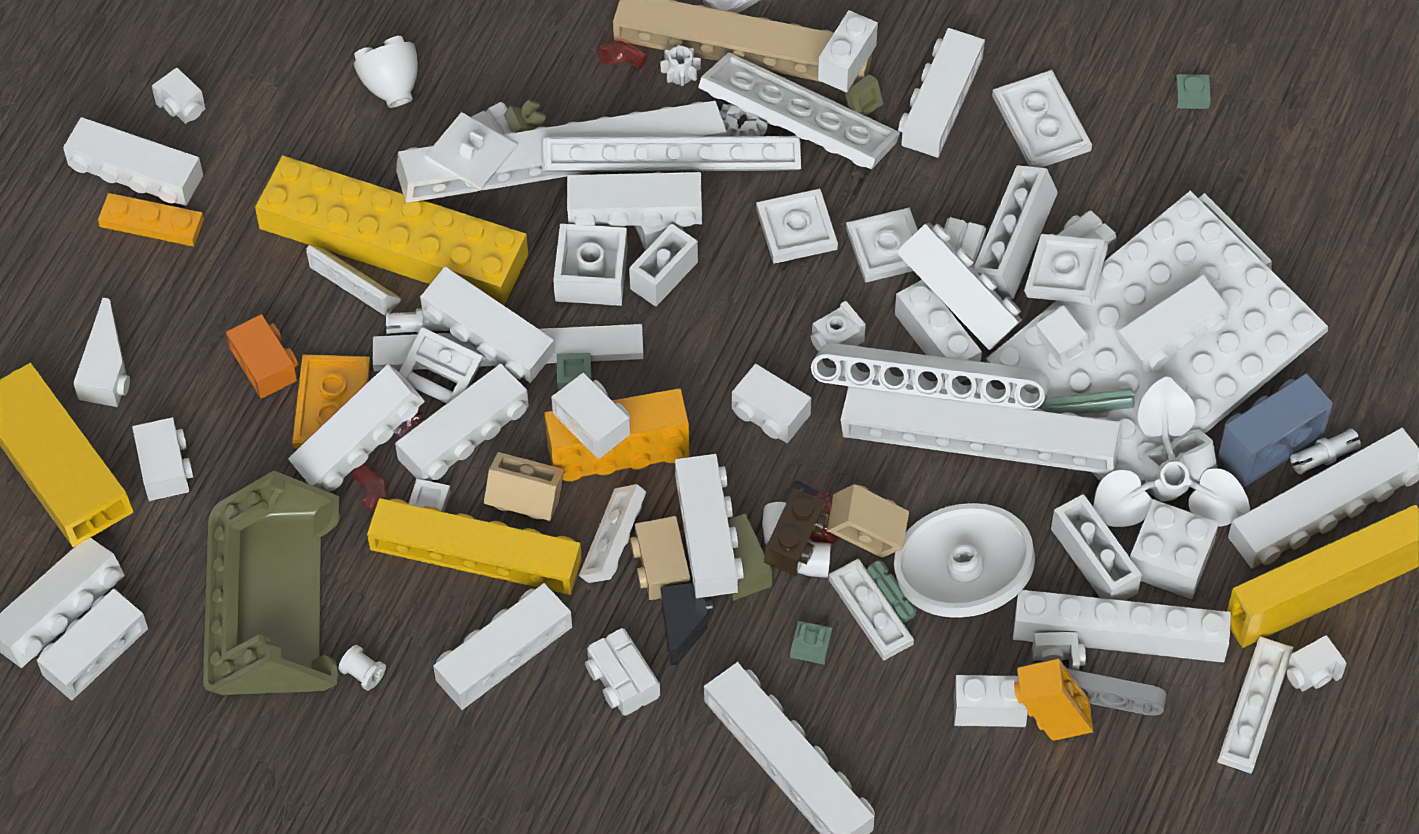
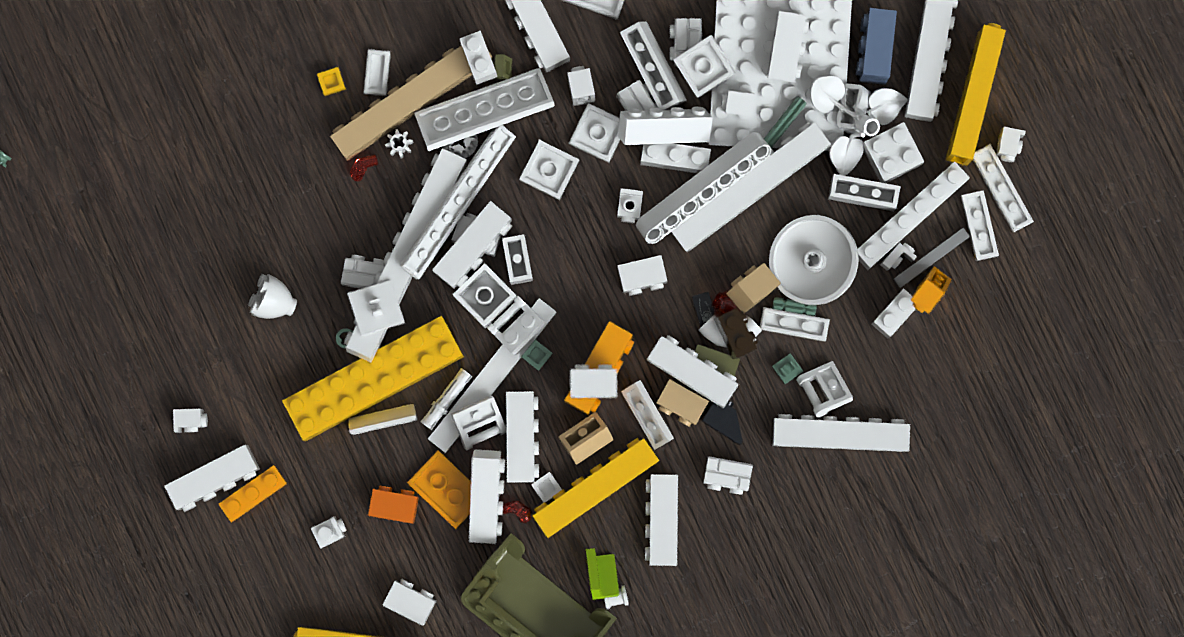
camera: 45 degrees left, 25 degrees up
(102, 368) = (328, 589): white slope -> none
(174, 322) = (329, 531): none -> white bracket
(373, 625) = (602, 575): none -> lime panel
(487, 325) = (478, 380): white brick -> none
(525, 118) = (371, 258): olive tile -> none
(584, 328) = (520, 330): none -> white plate
(835, 699) = (830, 384): none -> white plate
(919, 177) = (581, 85): none -> white brick
(1186, 712) = (979, 225): none -> white plate
(1325, 451) = (904, 28): white pin -> none

